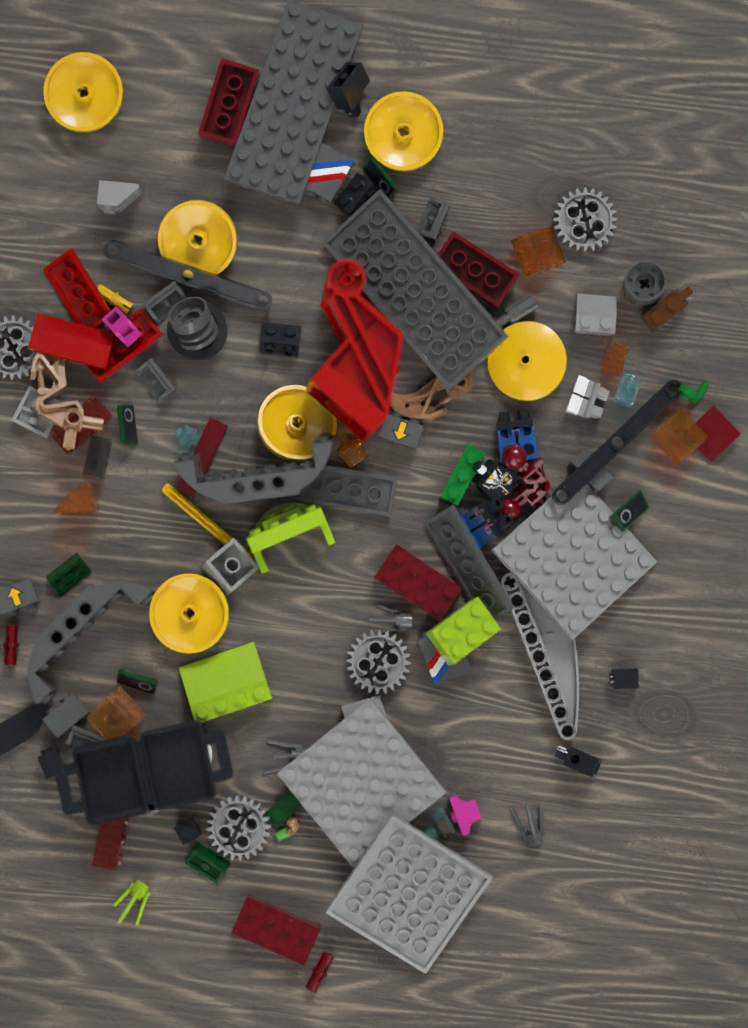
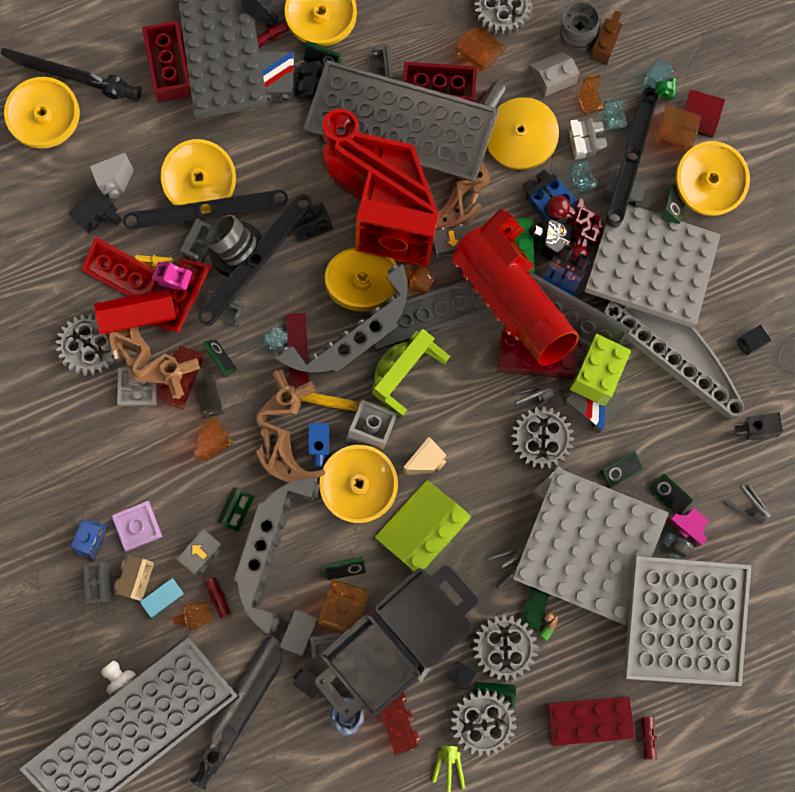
camera: 30 degrees left, 10 degrees down
(67, 820) = (346, 726): none -> sand blue hair
(83, 216) = (94, 209): none -> black hinge
(155, 503) = (277, 407): none -> medium nougat piece
(164, 98) = (112, 87): none -> black piece
(179, 549) = (317, 433): none -> blue torso
(189, 864) = (486, 740): none -> light grey gear
(193, 358) = (246, 270): none -> black beam
(262, 624) = (426, 459): none -> tan slope
(345, 126) = (272, 33): none -> dark red pin
(420, 489) = (503, 279): none -> red piece
(434, 728) = (622, 469): none -> slope
(464, 776) = (671, 494): none -> slope
(560, 435) = (582, 176): none -> clear light blue bracket
(679, 505) = (712, 178): none -> yellow dish
(694, 373) = (659, 72): none -> clear light blue brick

